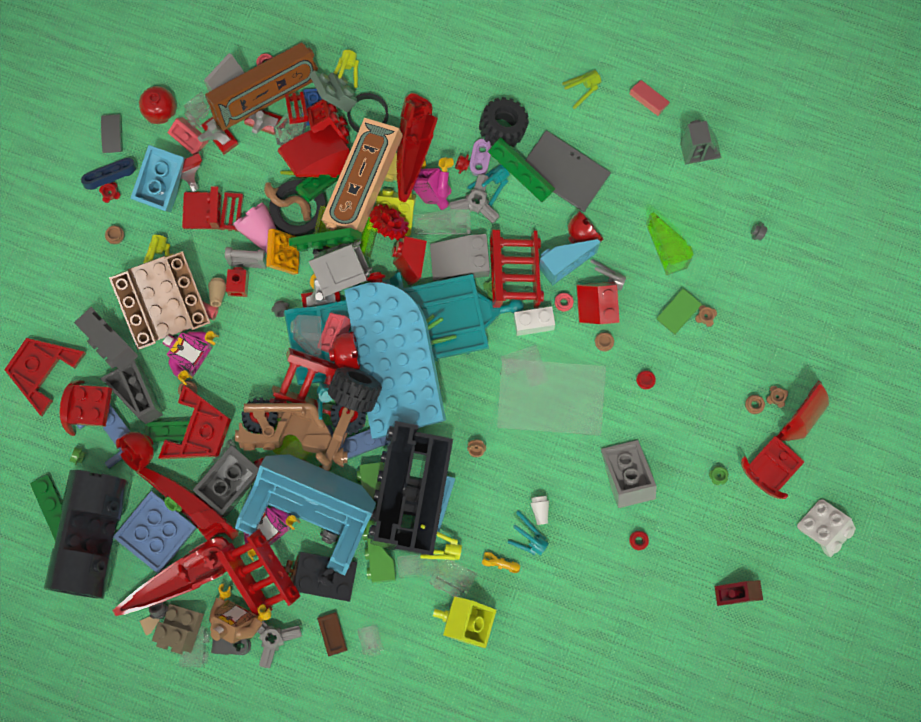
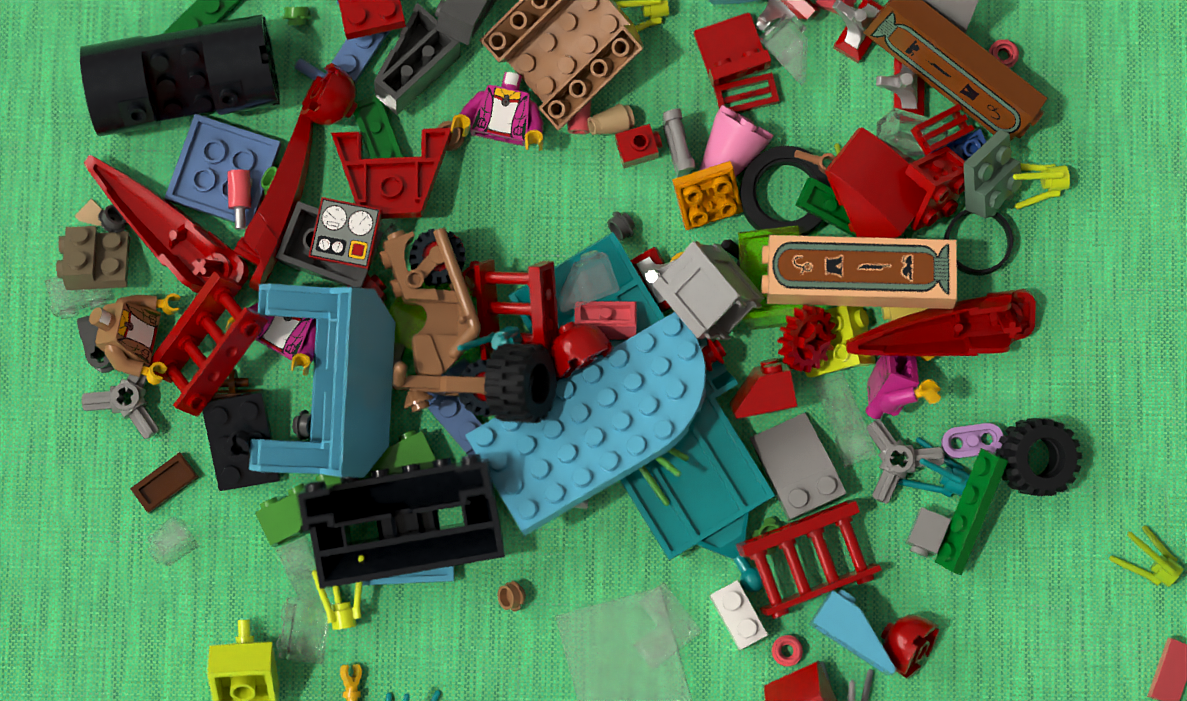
camera: 75 degrees right, 5 degrees up
(174, 525) = (239, 195): none -> coral piece
(213, 175) = (788, 45): none -> clear slope
(223, 466) = (345, 233): none -> tile
(271, 193) = (790, 143): medium nougat animal -> none
(287, 181) = (815, 159): none -> nougat hand
(322, 239) = (745, 260): green plate -> none
(462, 163) = (951, 416): red plate -> none
(524, 199) = (927, 532): none -> light grey brick
(572, 177) = (994, 592): dark grey container -> none

